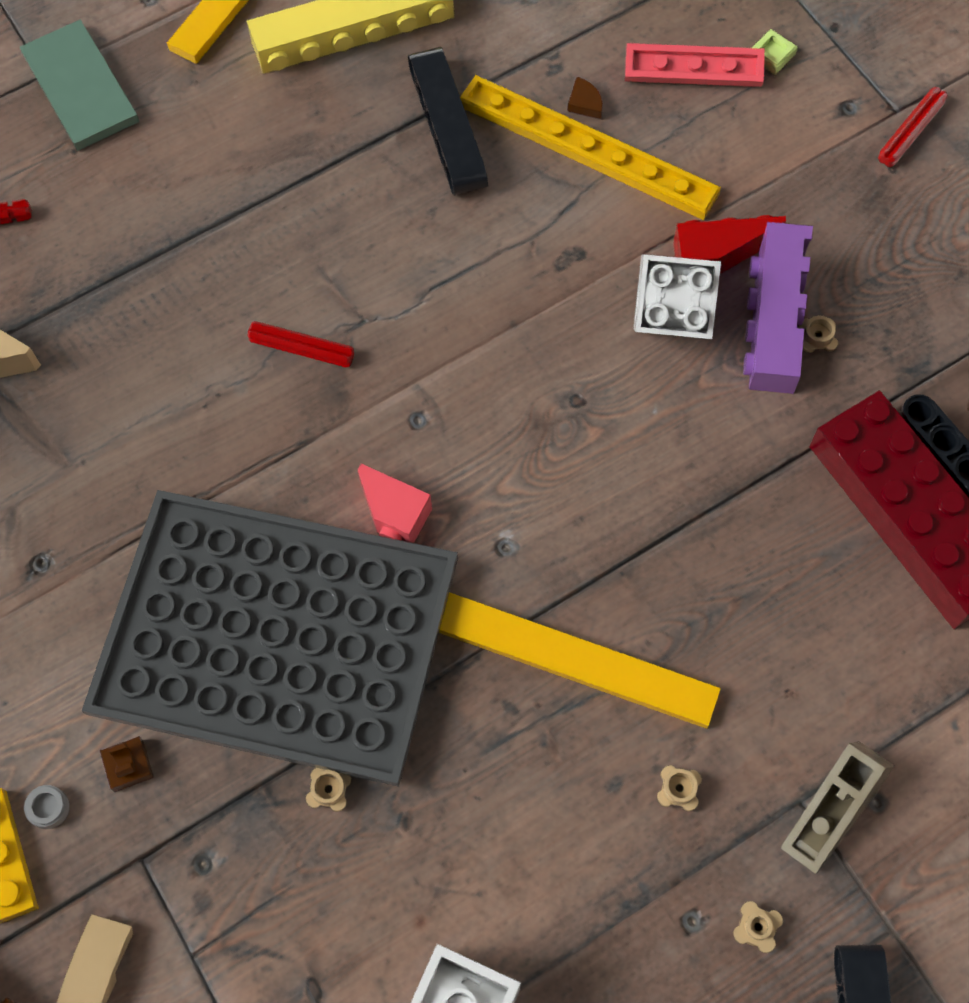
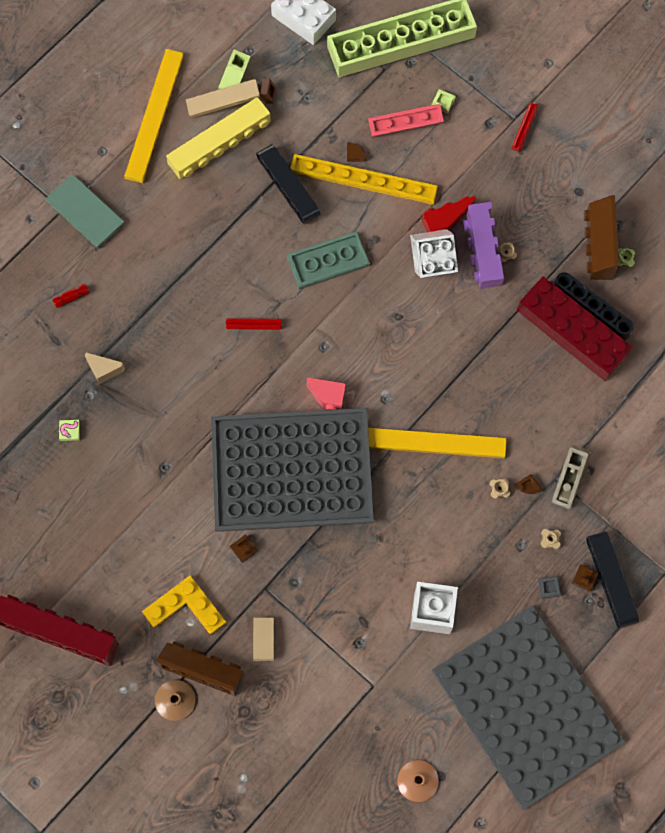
camera: 20 degrees left, 5 degrees up
(46, 807) = (213, 578): light grey tile -> none
(334, 799) = (336, 529): tan plate -> none
(477, 267) = (328, 260): none -> sand green tile
(741, 799) = (528, 485): none -> reddish brown tile

